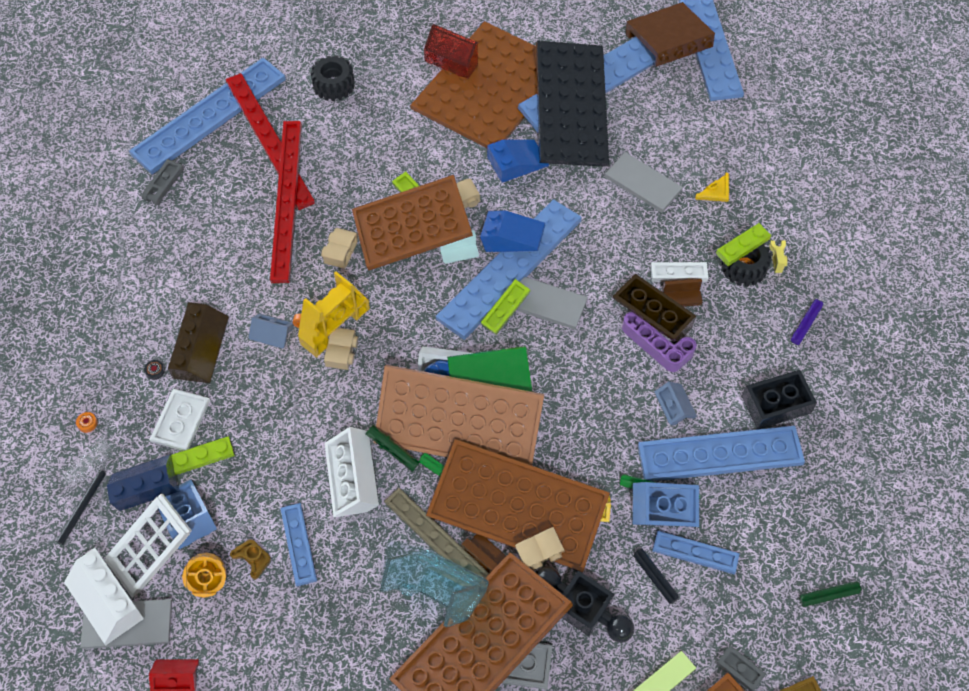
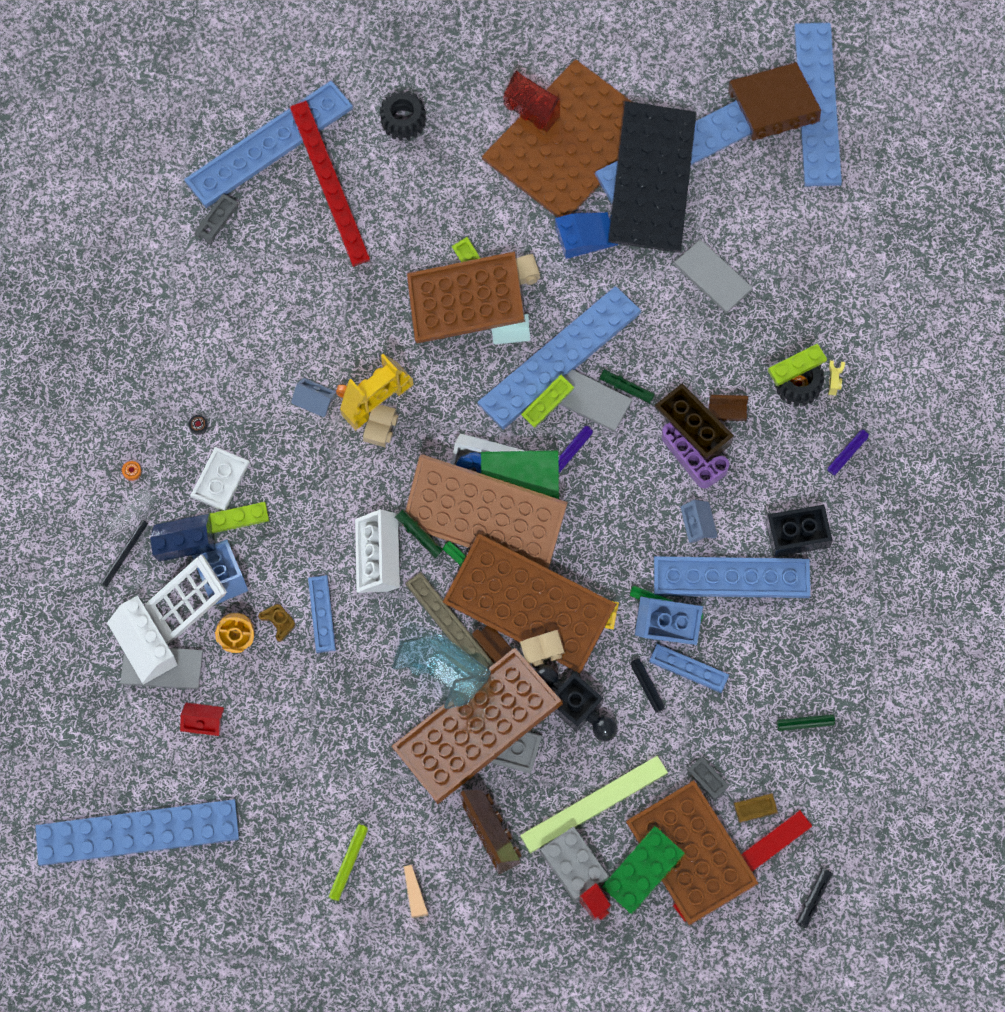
camera: 10 degrees right, 10 degrees up
(198, 343) = (242, 403): dark brown slope -> none
(286, 202) = (341, 258): red plate -> none
(339, 248) = (390, 316): tan brick -> none
(511, 232) = (565, 321): blue slope -> none
(539, 345) = (574, 446): none -> dark purple axle
(581, 286) = (627, 386): none -> dark green pin
(678, 271) = (729, 383): white plate -> none
(716, 191) = (788, 295): yellow tile -> none

